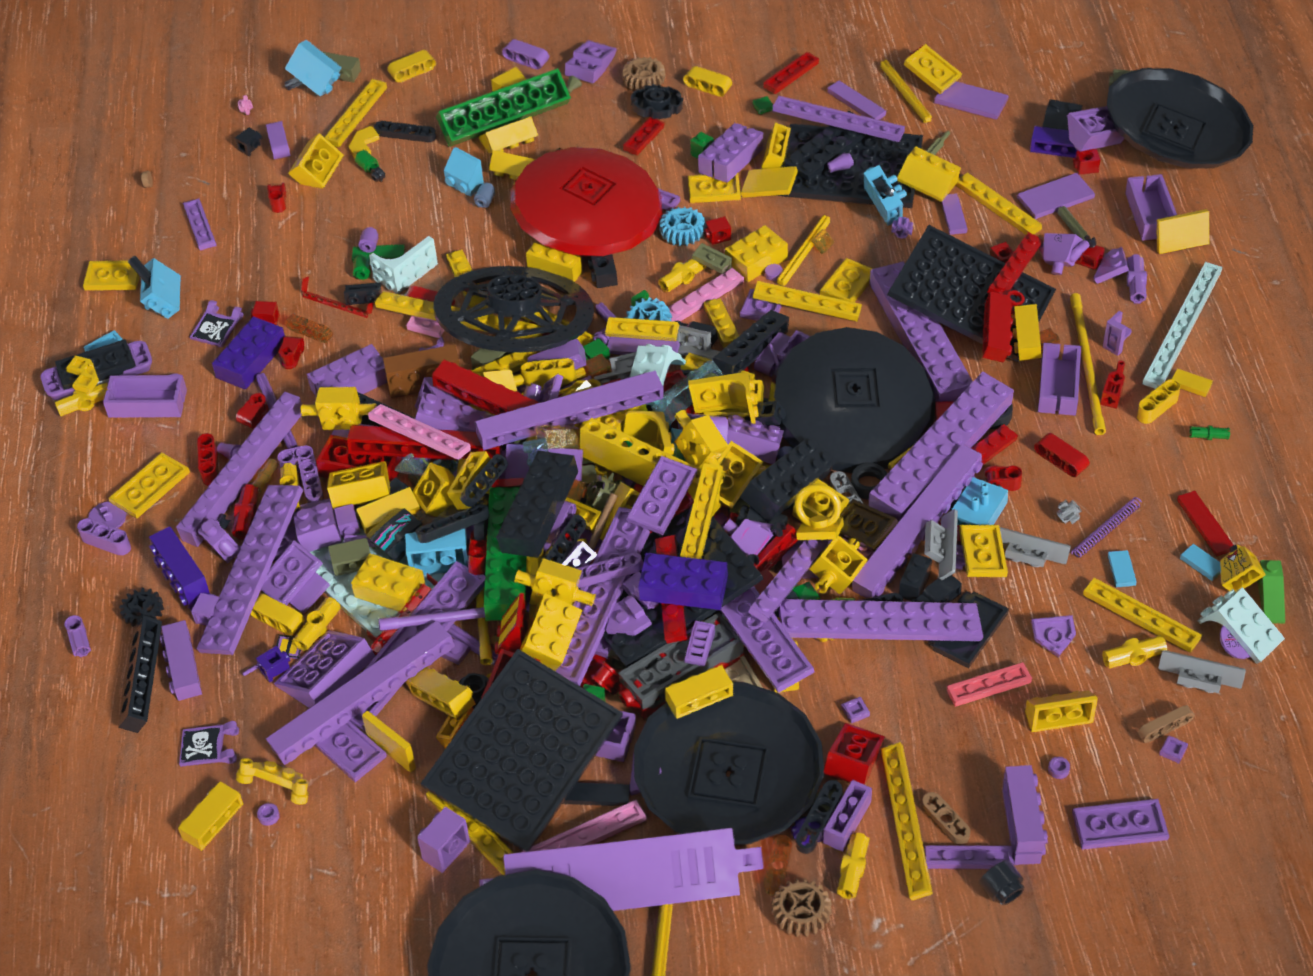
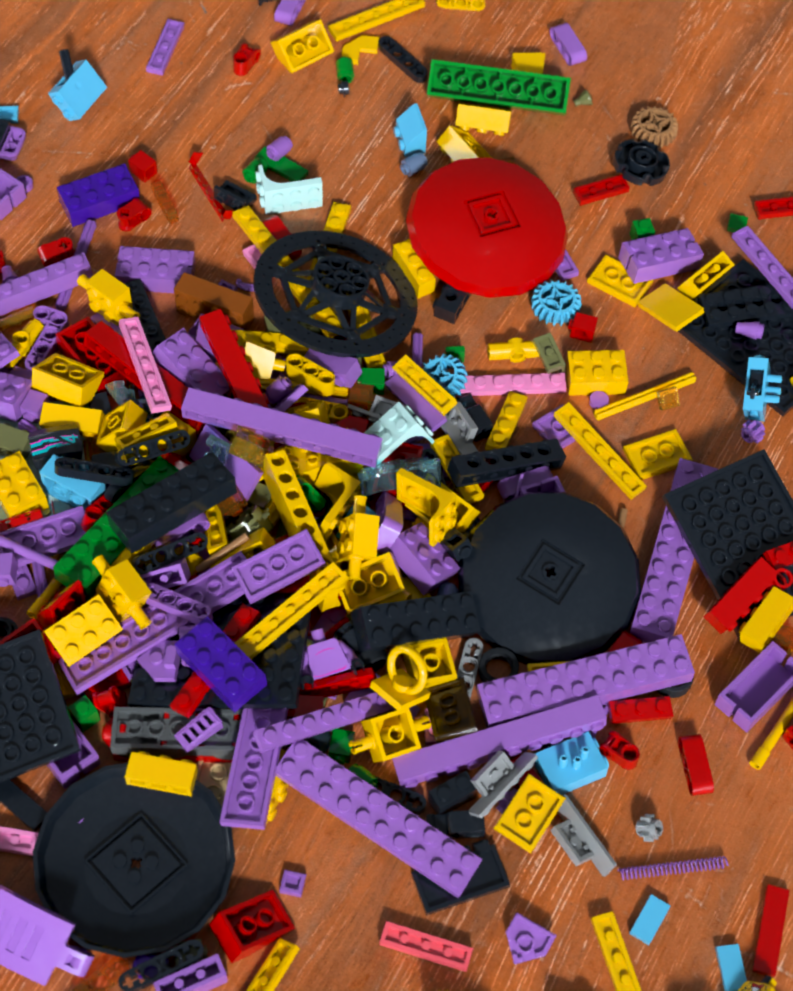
camera: 30 degrees right, 10 degrees up
(110, 276) = (48, 47): yellow plate -> none
(214, 327) = (97, 151): flag -> none
(590, 61) = (618, 85): medium lavender slope -> none
(707, 81) = (706, 169): yellow beam -> none

